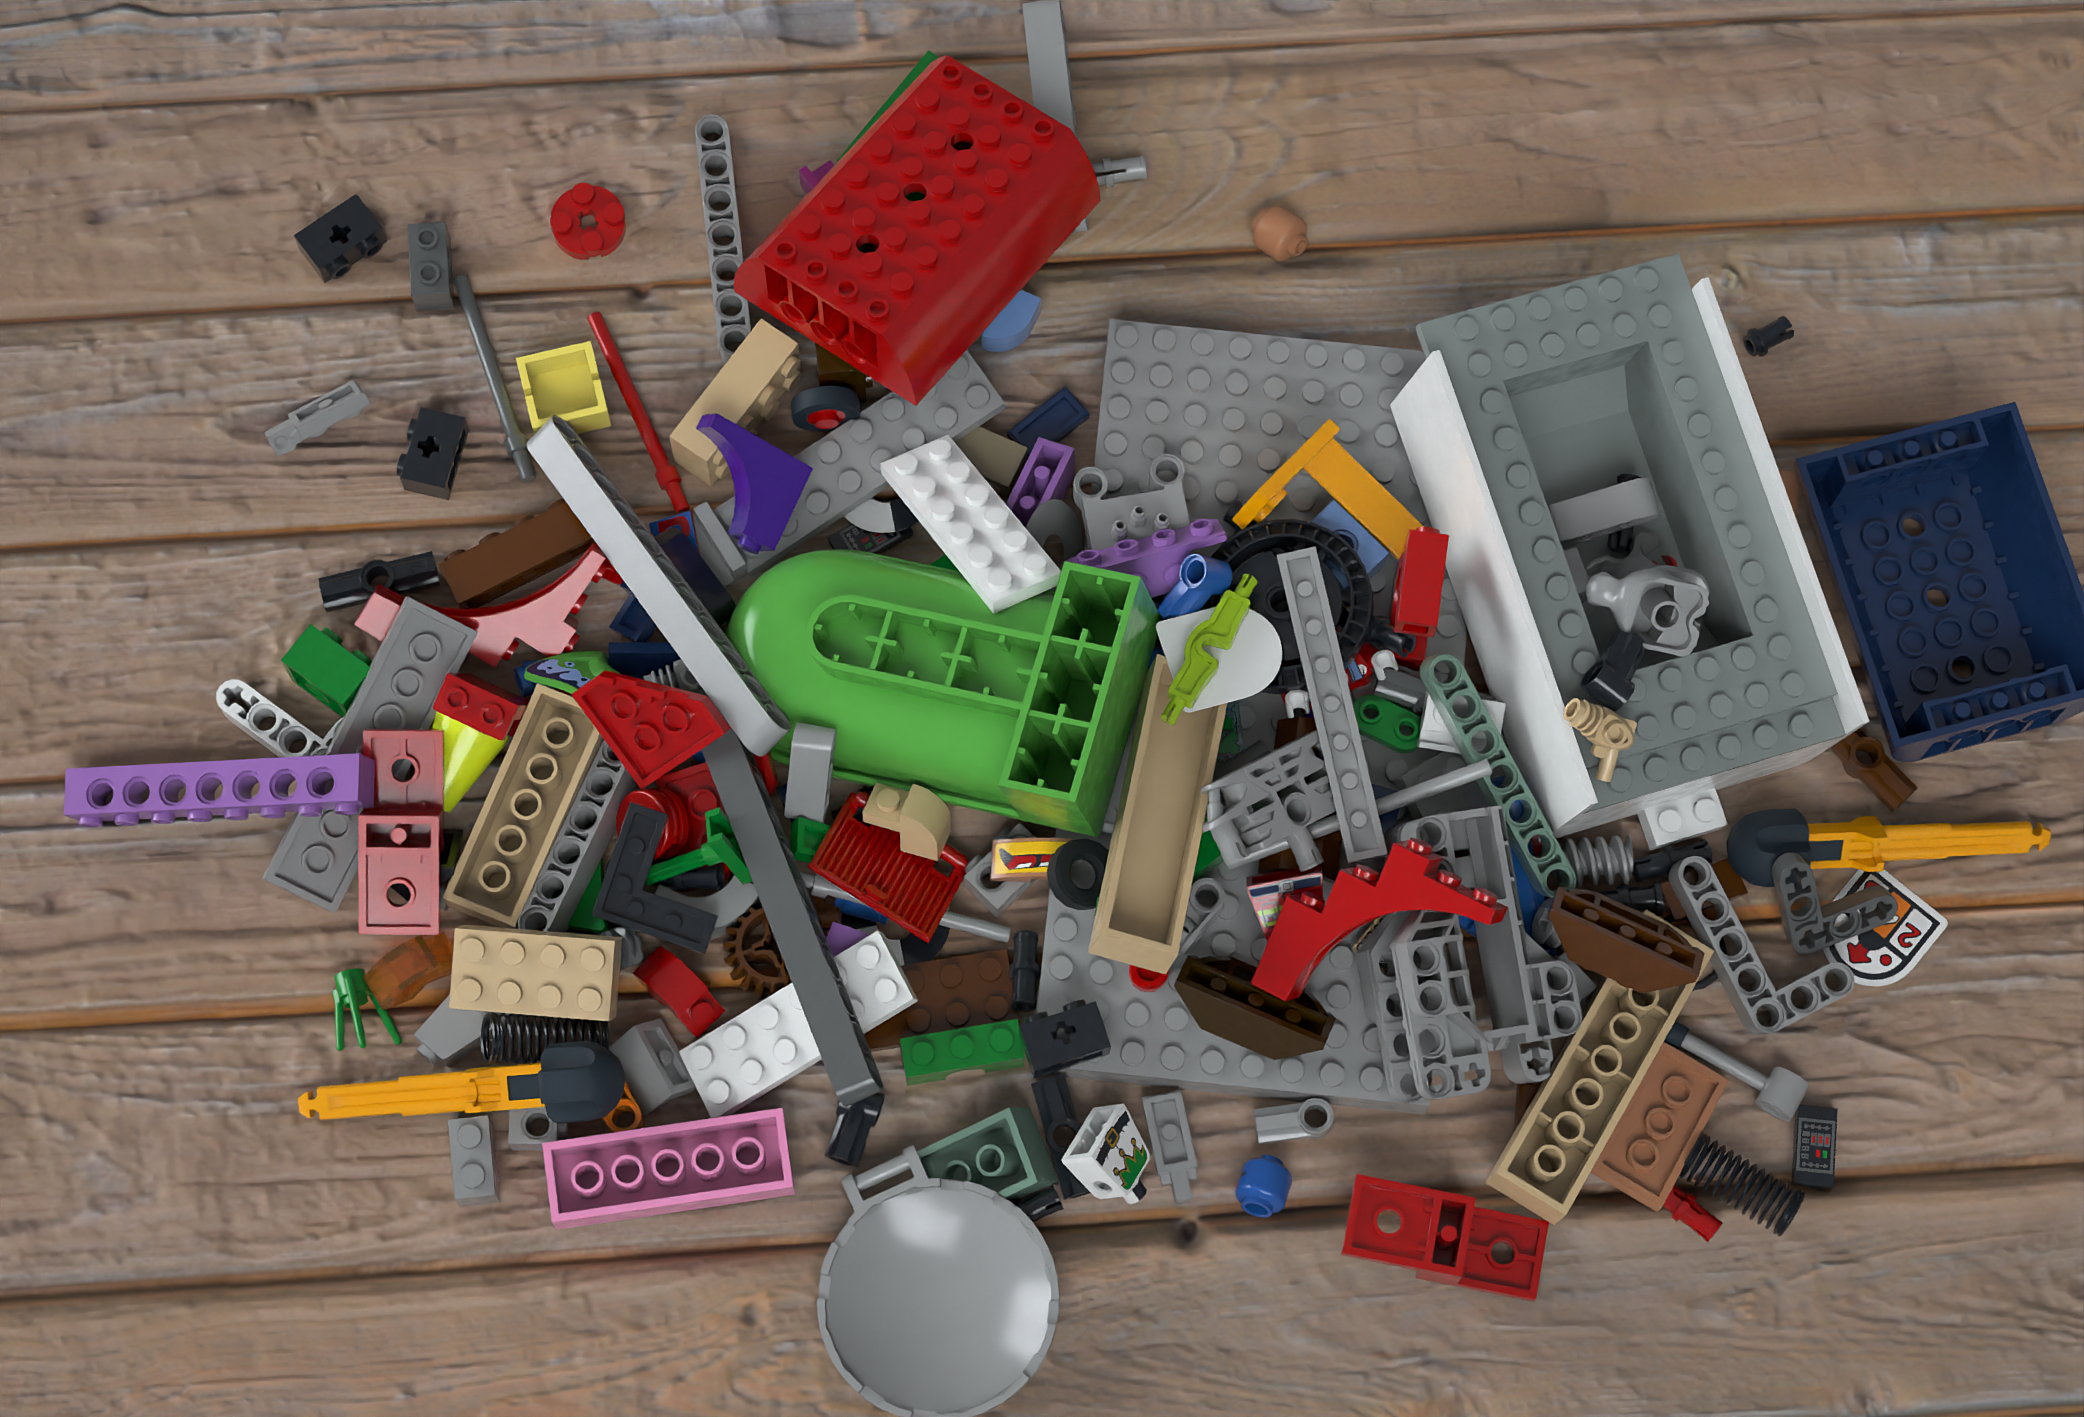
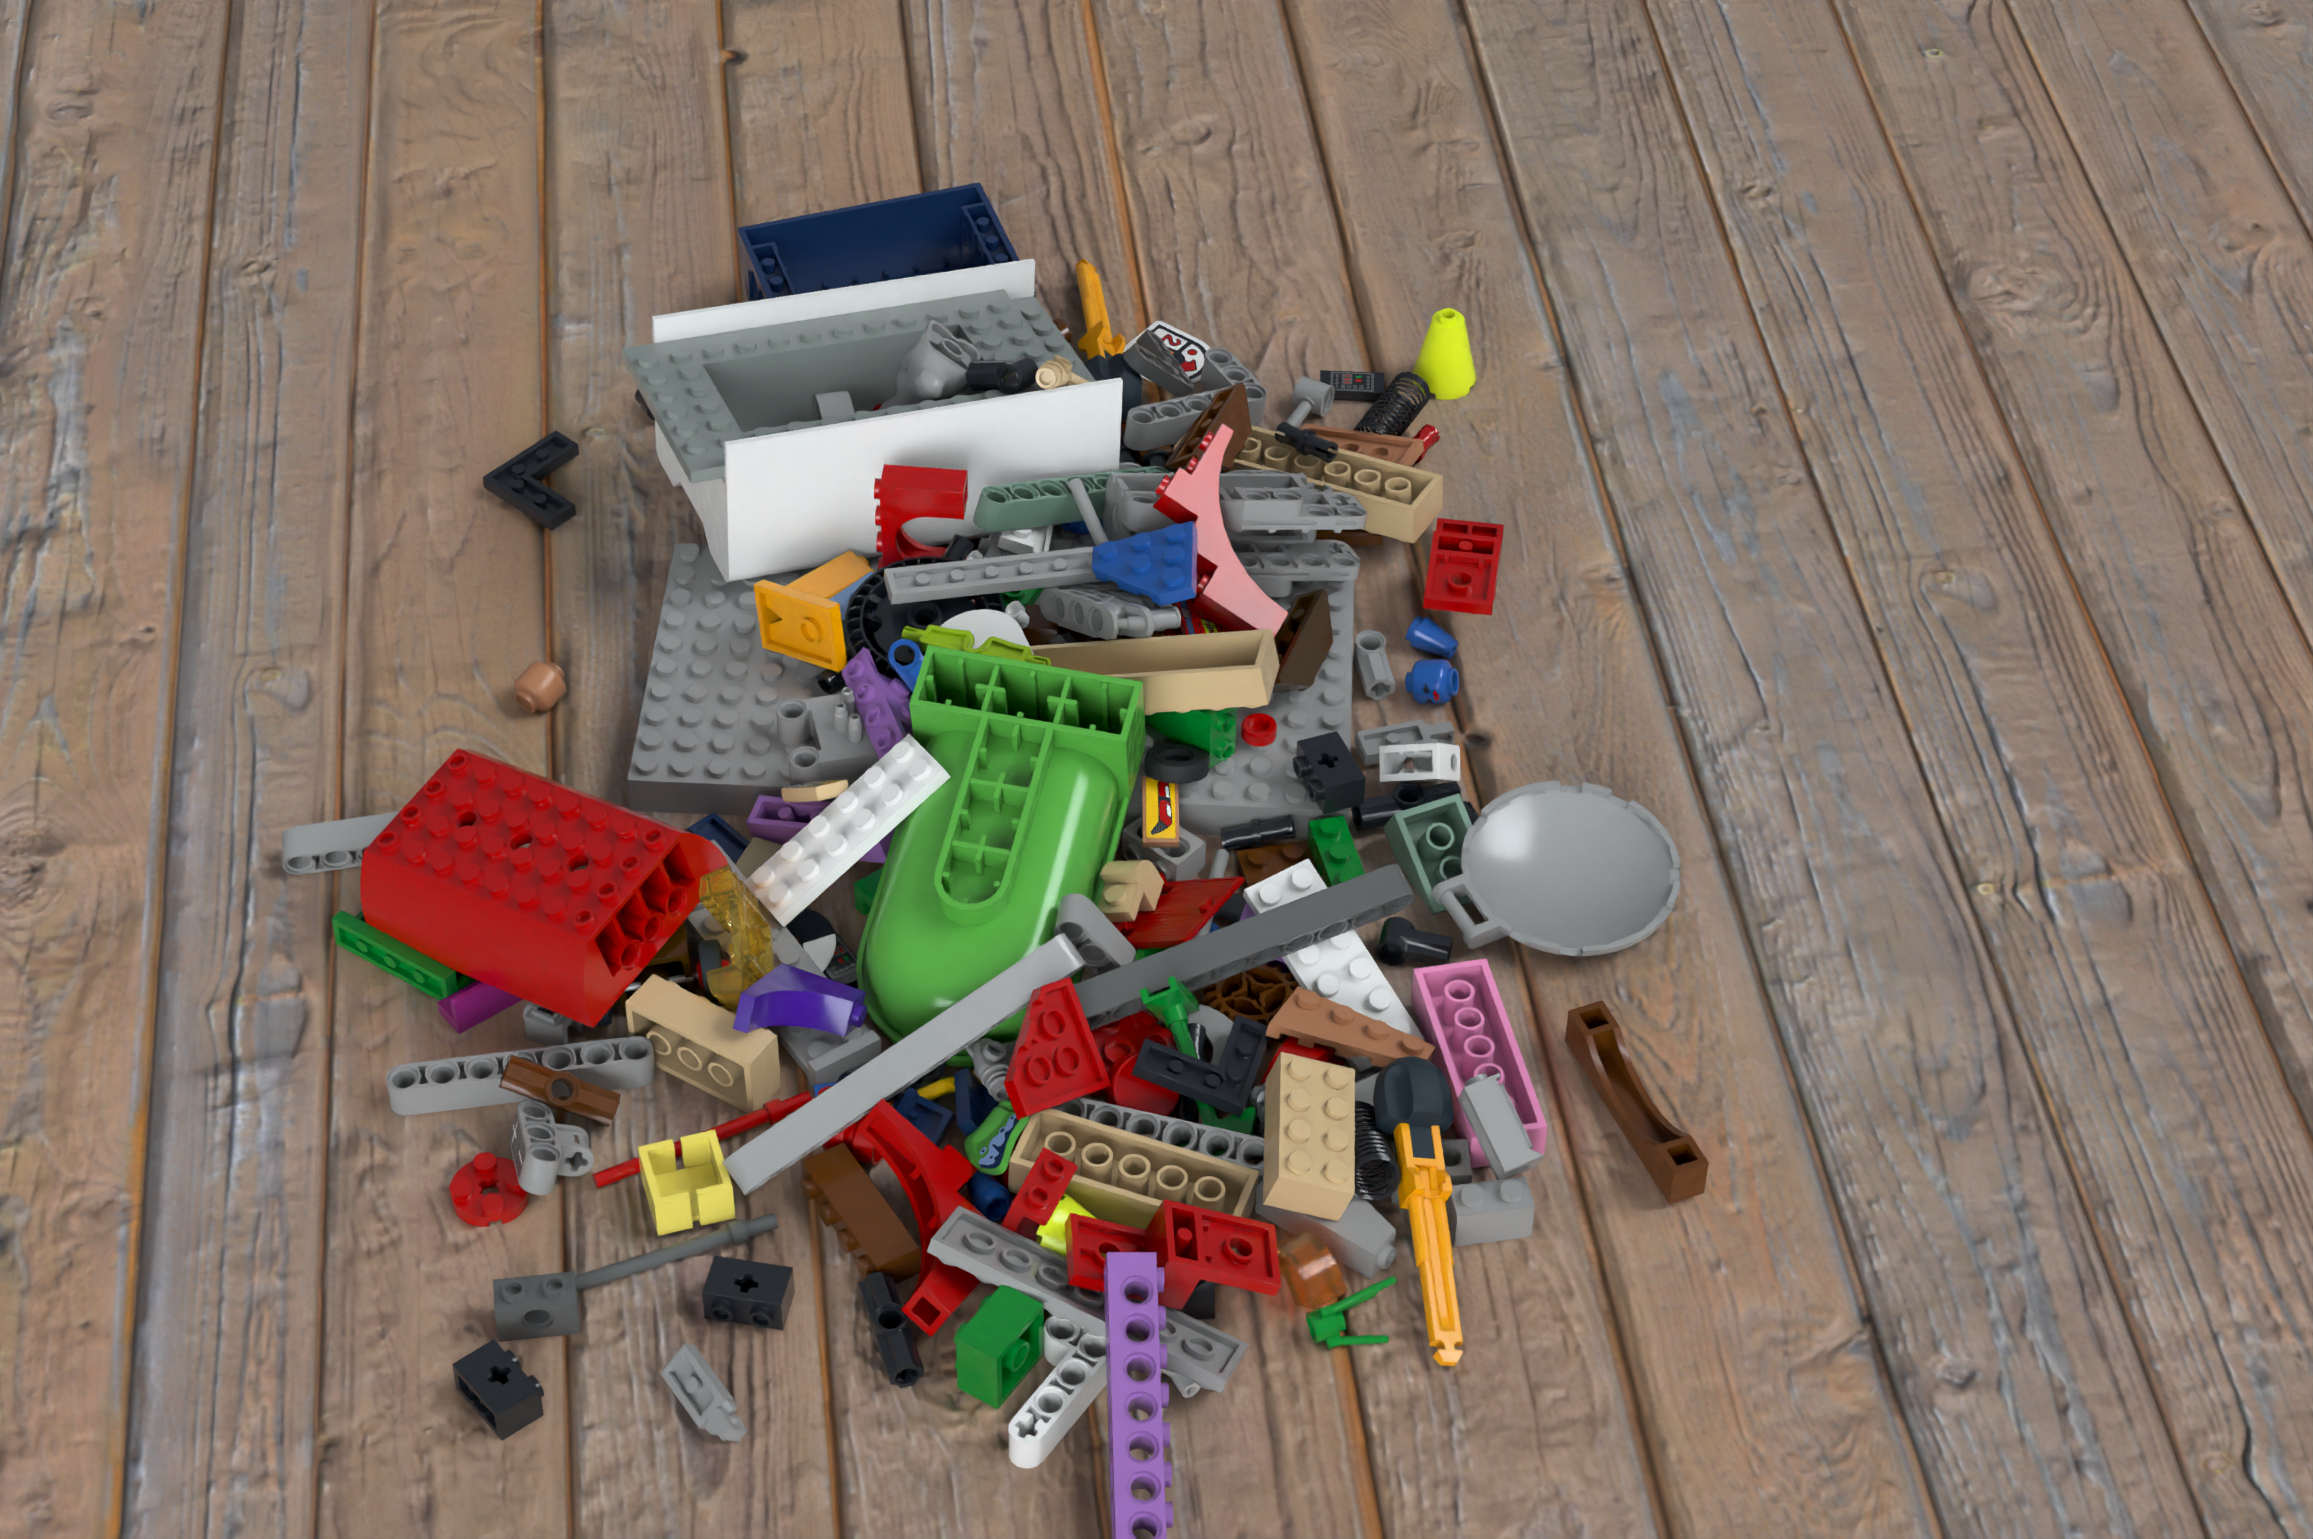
camera: 90 degrees left, 30 degrees down
(535, 1165) = (1498, 1127): none -> light grey window
(604, 1329) = (1664, 1150): none -> reddish brown arch
(615, 276) = (544, 1148): none -> light grey beam
(683, 272) = (535, 1083): none -> reddish brown piece
(699, 1018) = (1340, 1027): none -> nougat wing
(834, 430) = (751, 948): none -> clear yellow plate
(1038, 492) = (814, 791): none -> tan tile
(1303, 834) = (1152, 563): none -> blue plate
(1338, 1195) = (1430, 637): none -> blue cone
(1626, 1057) = (1306, 442): none -> black pin
(1631, 193) = (519, 480): none -> black plate
(1838, 1263) = (1446, 357): none -> neon yellow cone

